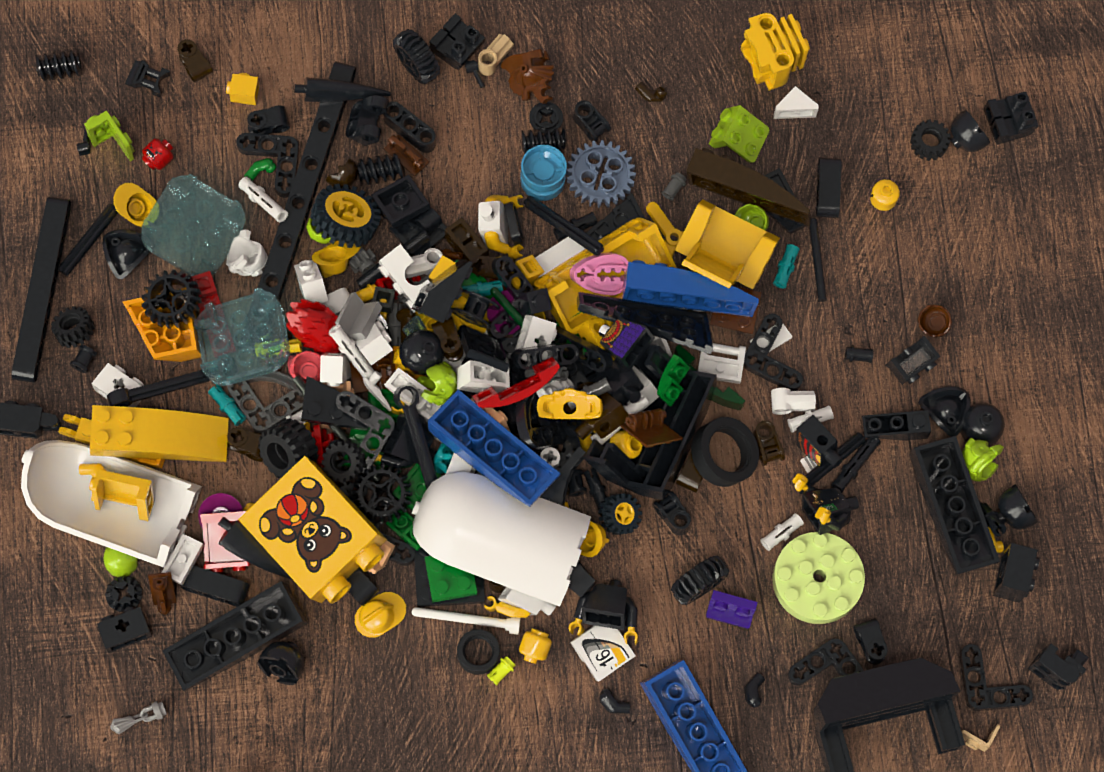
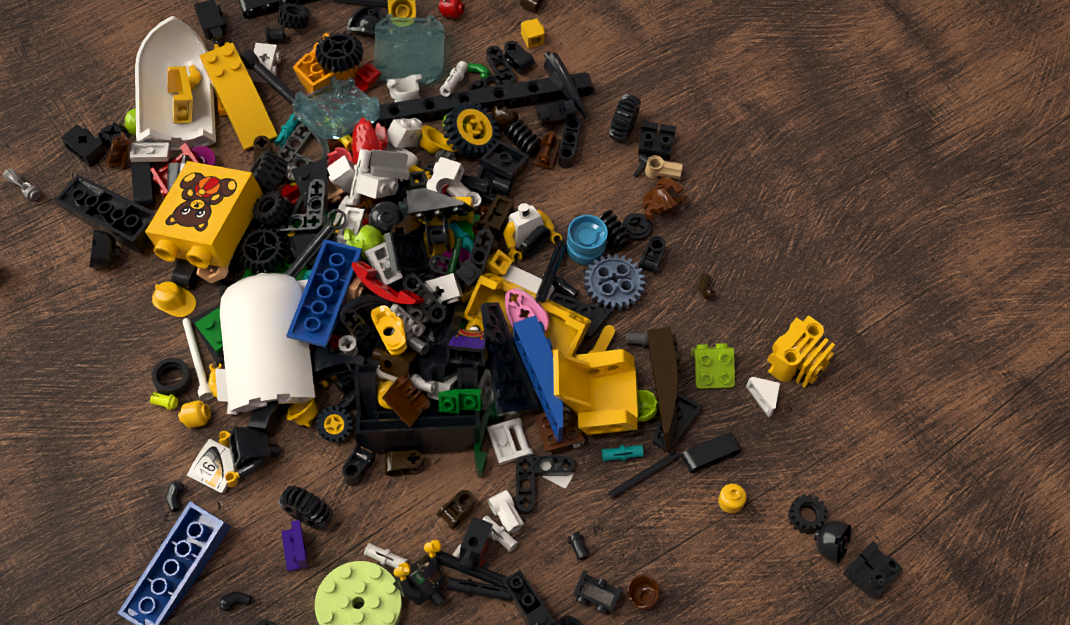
camera: 65 degrees right, 10 degrees down
(745, 441) = (450, 487): black tyre -> none

